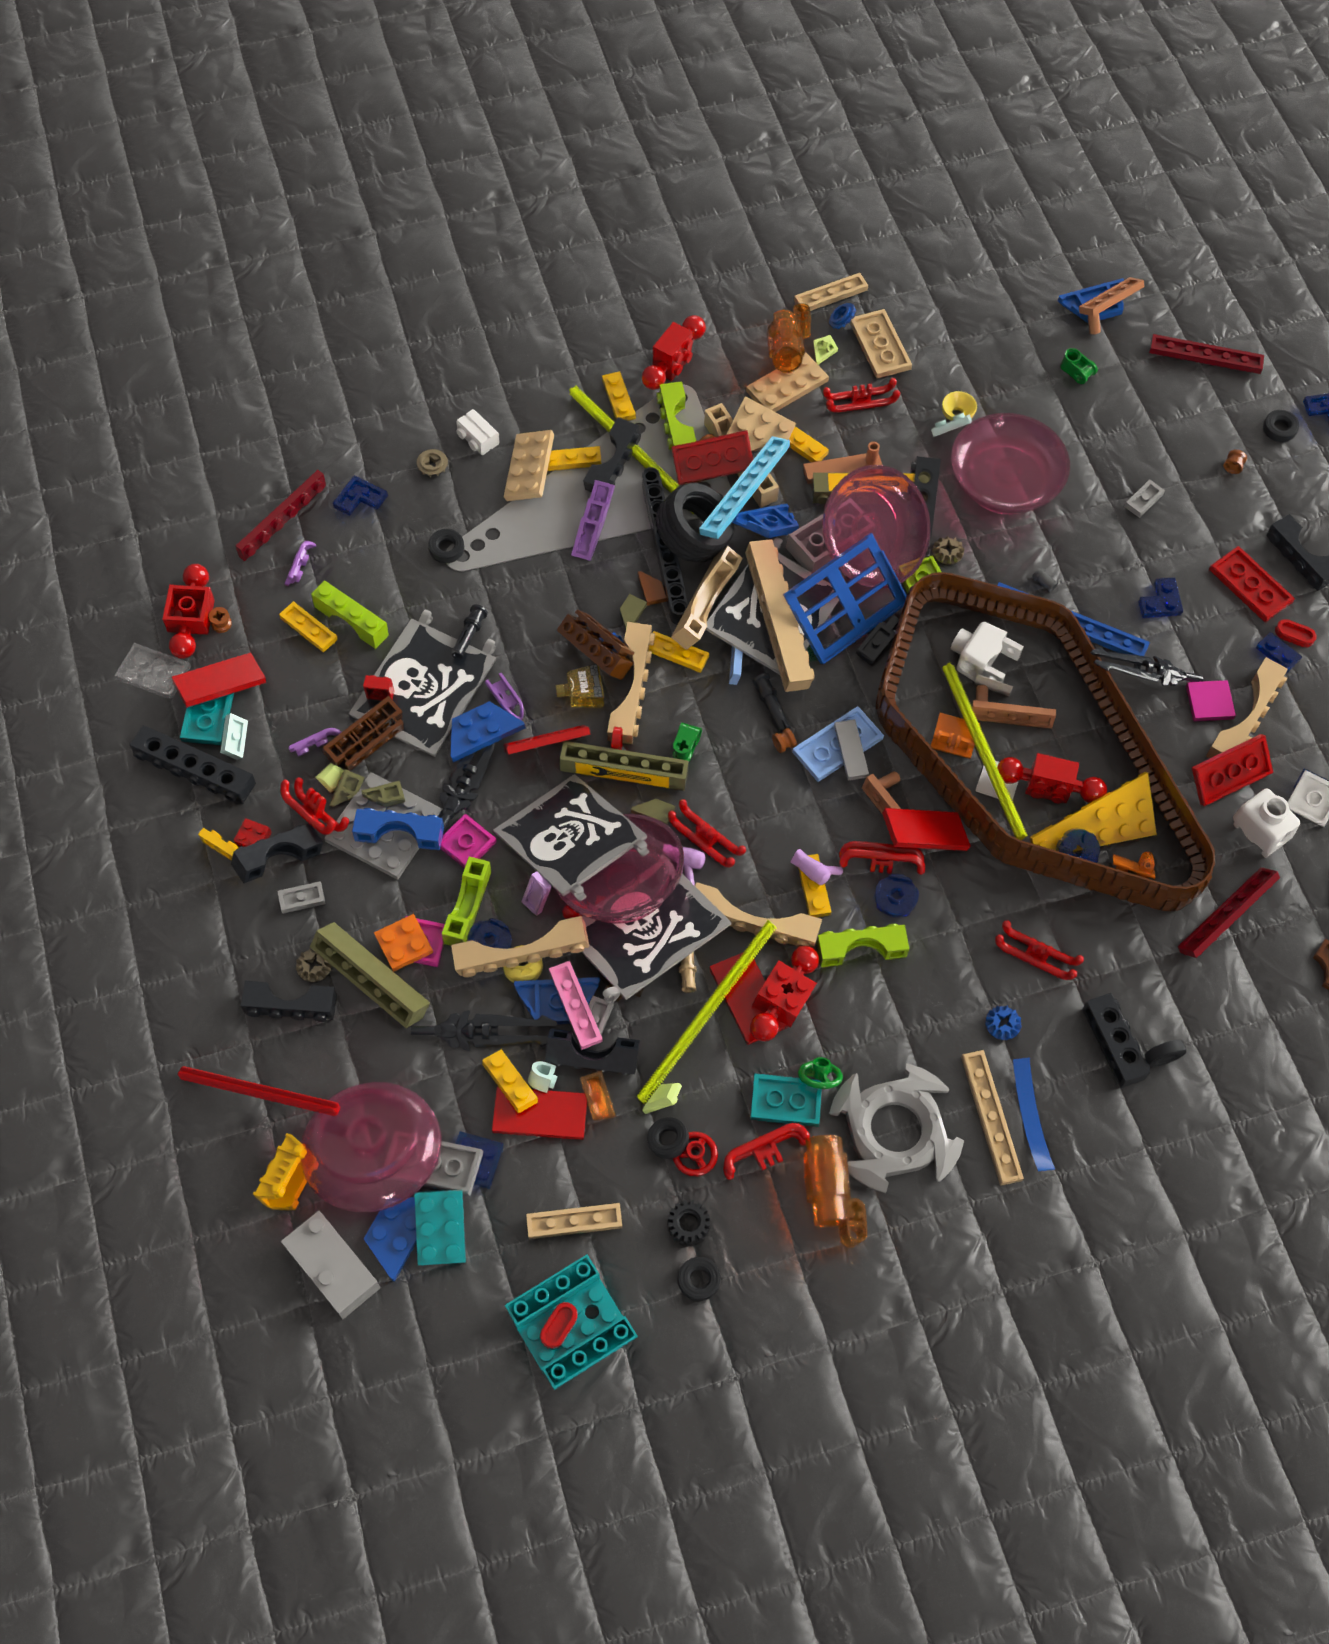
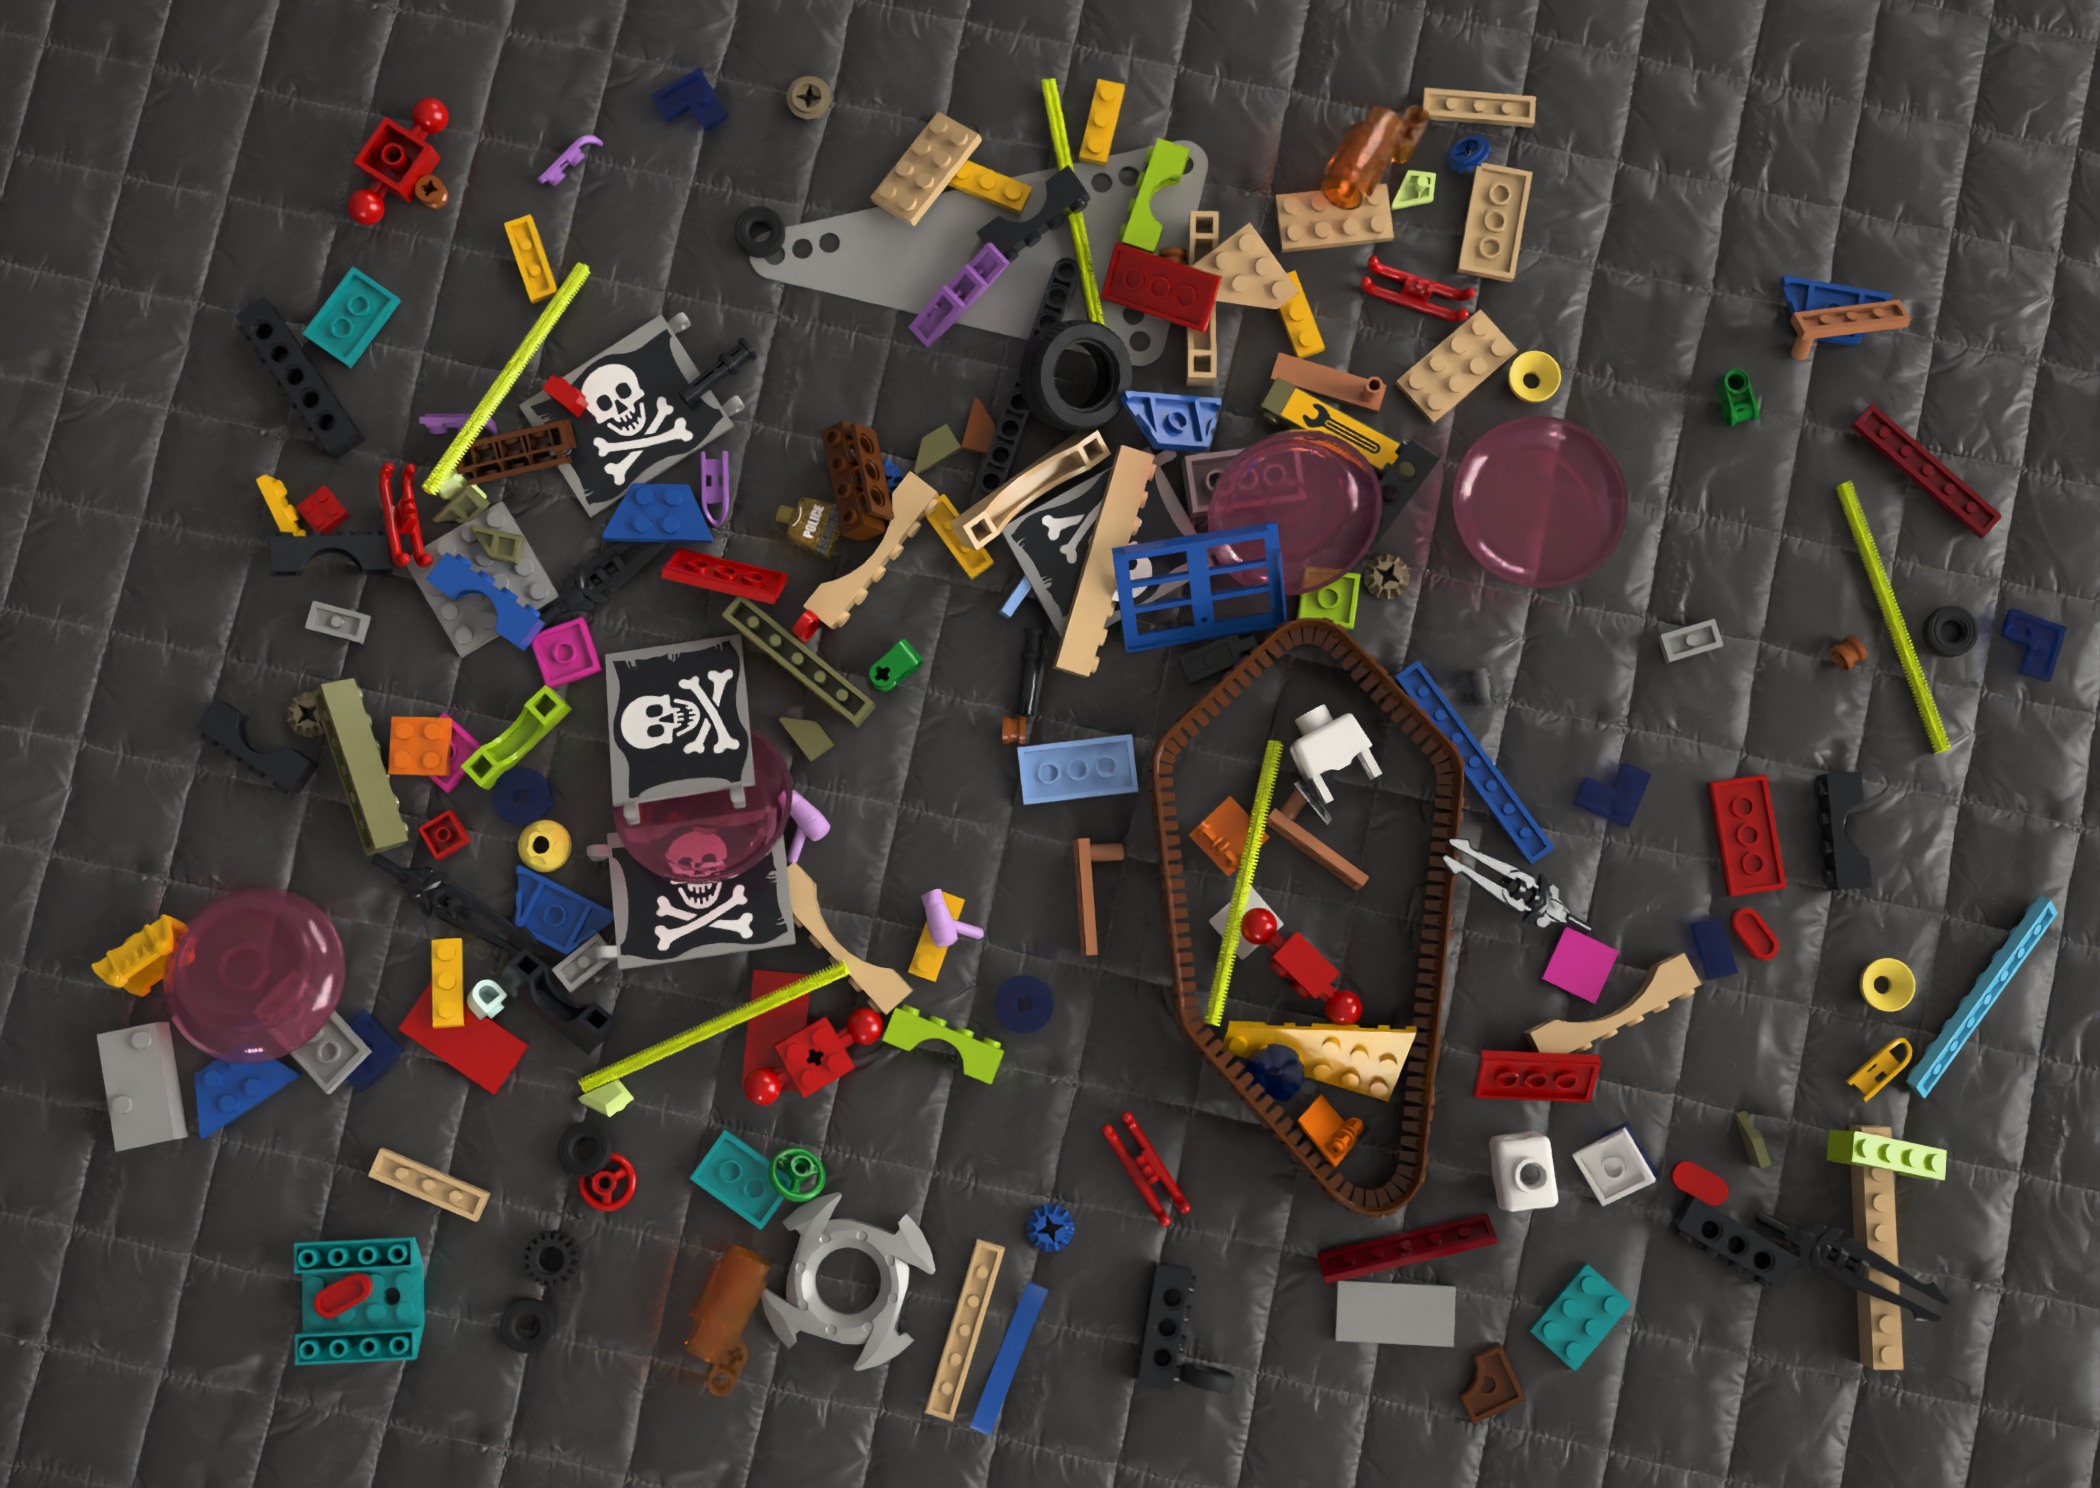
camera: 30 degrees right, 20 degrees up
(151, 670) = (317, 222): clear plate -> none
(218, 679) = (384, 279): red tile -> none
(234, 736) = (366, 366): light aqua plate -> none
(259, 1091) = (160, 846): red axle -> none
(278, 517) = (580, 78): dark red plate -> none
(335, 699) = (504, 379): none -> neon yellow axle
(365, 623) = (587, 270): lime arch -> none
(440, 1227) = (278, 1111): teal plate -> none
(451, 990) = (444, 835): none -> red piece
(477, 432) = (889, 83): white brick -> none
(536, 893) = (600, 772): lavender tile -> none
(565, 937) = (488, 814): tan arch -> none
(575, 1005) = (567, 937): bright pink plate -> none
(597, 1096) = (536, 1056): clear orange slope -> none
(673, 351) = (1205, 95): red brick -> none
(688, 972) = (721, 968): tan pin -> none
(705, 836) = (846, 802): red piece -> none
(744, 487) = (1165, 360): medium azure plate -> none
(764, 1147) = (682, 1223): red piece -> none
(851, 749) = (1084, 790): light grey tile -> none
(881, 855) = (1037, 946): red piece -> none
(910, 425) = (1456, 367): none -> tan plate
(926, 829) = (1105, 947): red tile -> none
(943, 427) = (1512, 402): light aqua plate -> none
(1245, 435) = (1893, 618): none -> neon yellow axle
(1249, 956) = (1395, 1313): none -> light grey tile

